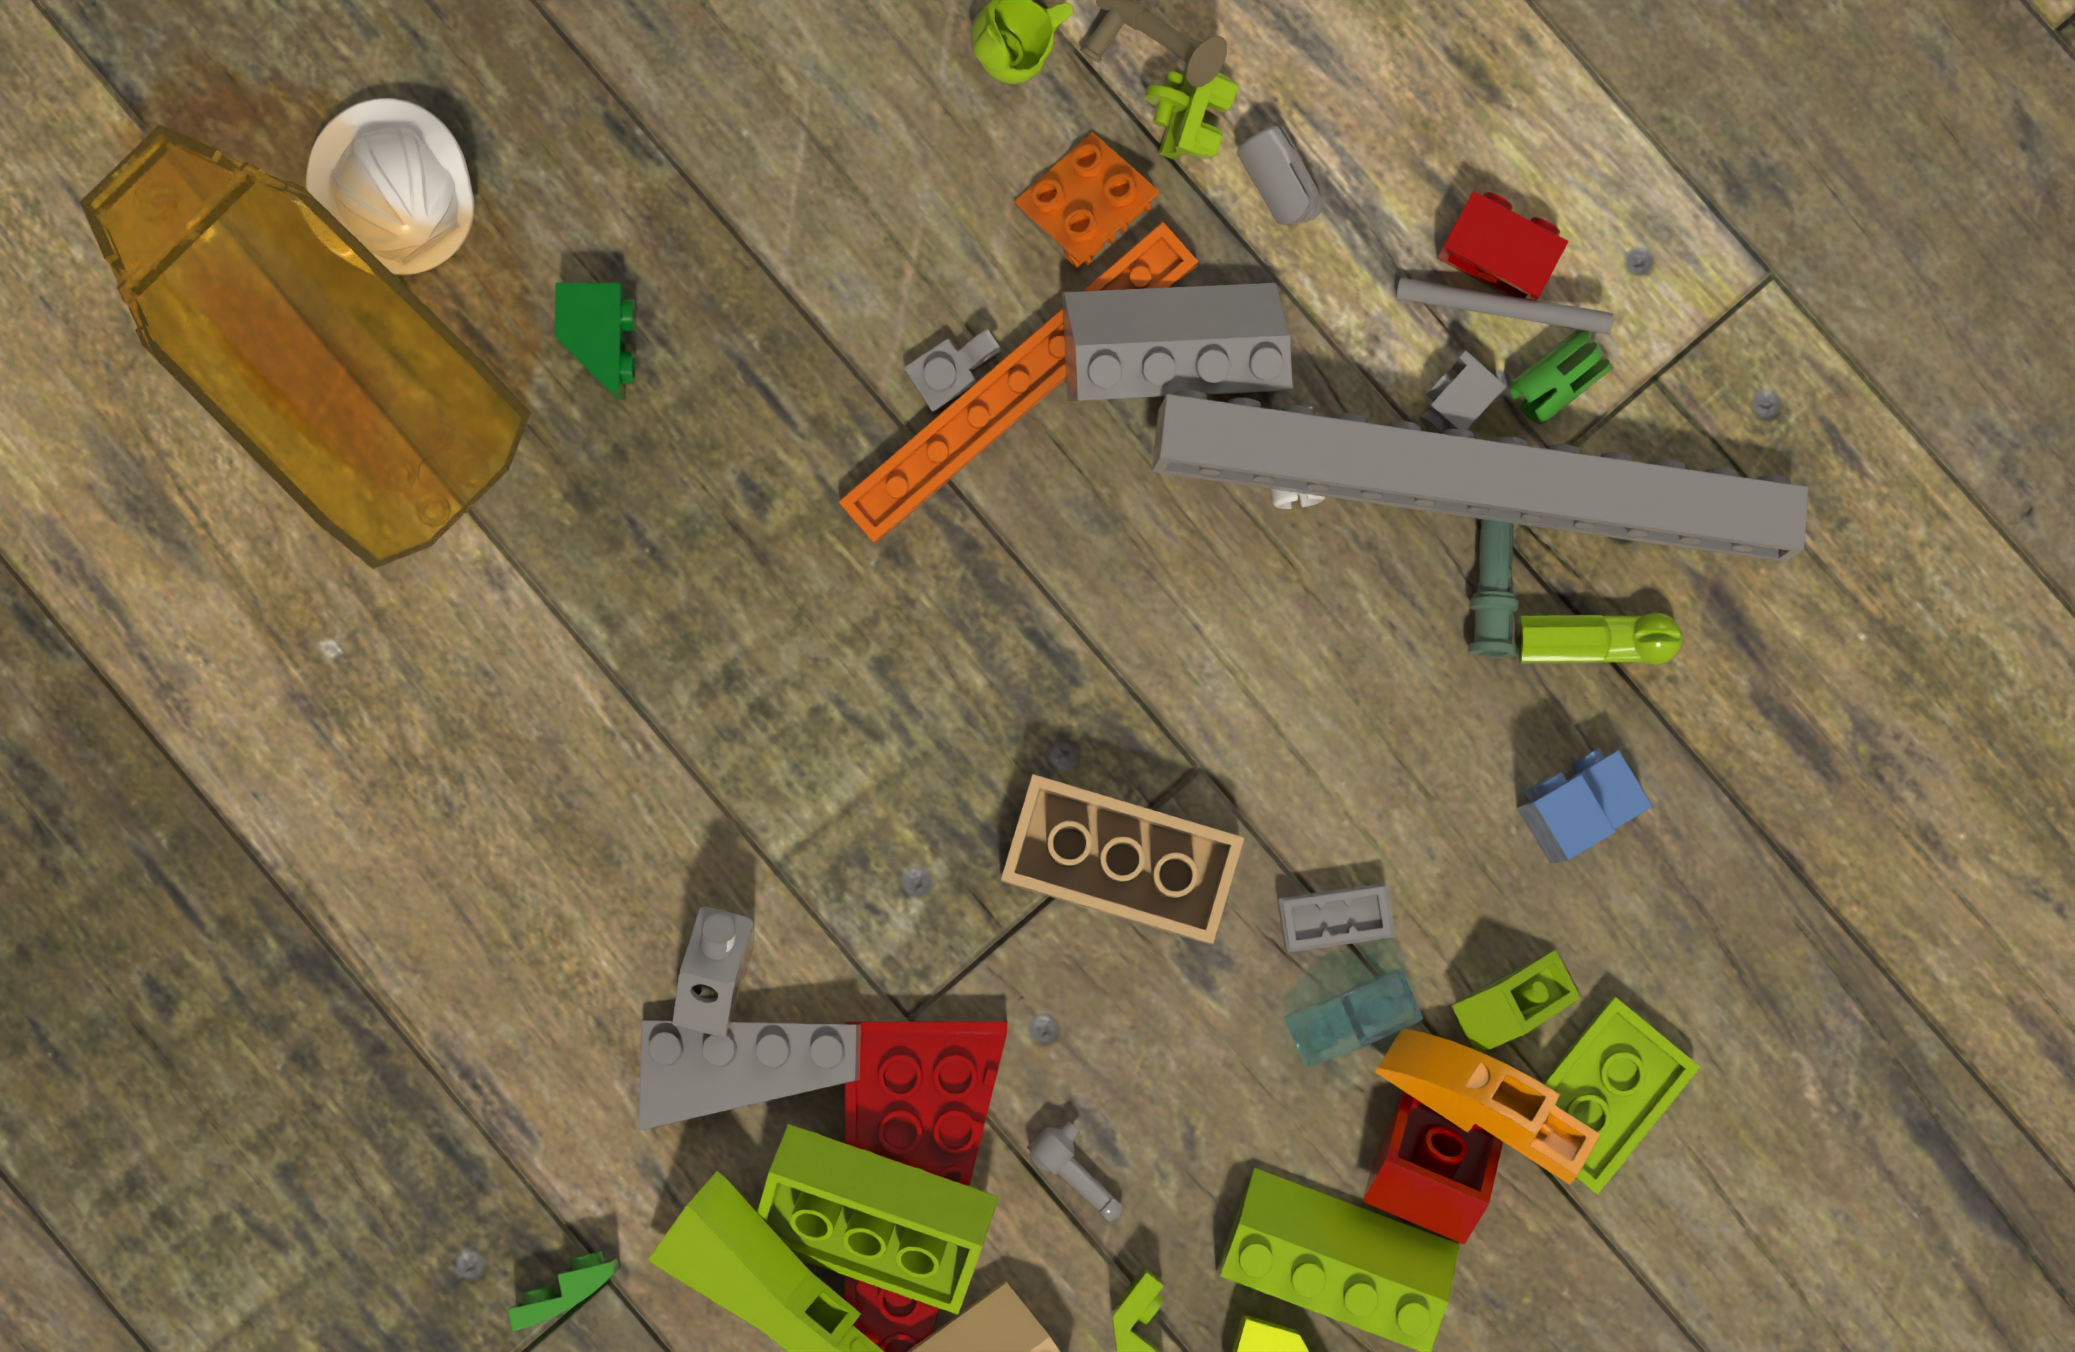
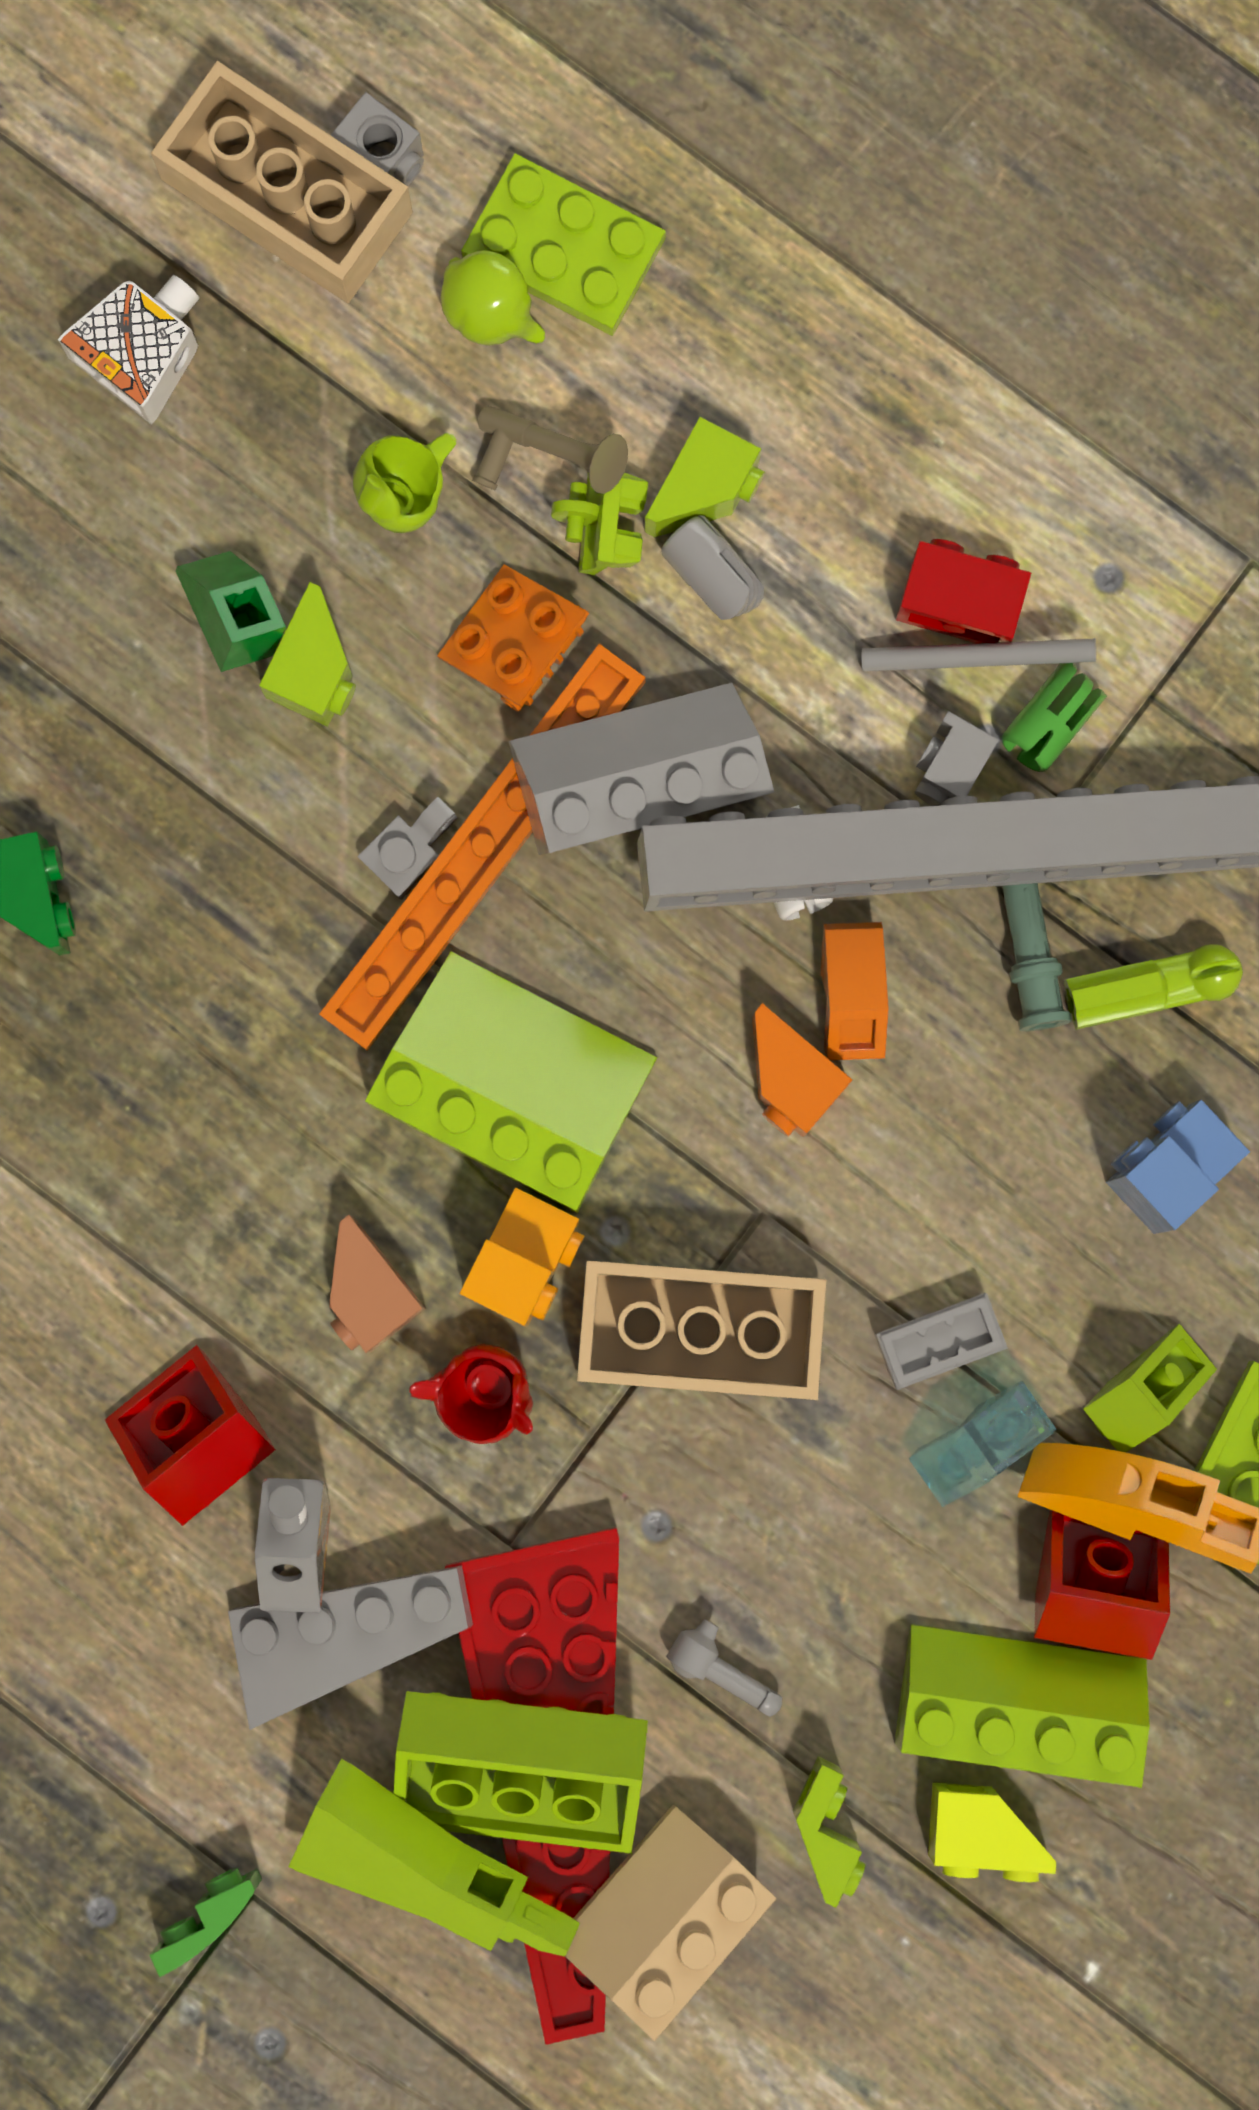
camera: 10 degrees left, 0 degrees up
(640, 855) = (188, 1436): none -> red slope
(828, 761) = (367, 1291): none -> nougat slope
(838, 120) = (232, 609): none -> green slope
(897, 185) = (310, 664): none -> lime slope
(910, 875) = (480, 1394): none -> red hair
(974, 760) = (522, 1258): none -> light orange brick
(998, 600) = (511, 1081): none -> lime slope
(1254, 649) = (792, 1075): none -> orange slope
(1291, 94) = (706, 479): none -> lime slope
(1327, 585) = (855, 991): none -> orange slope

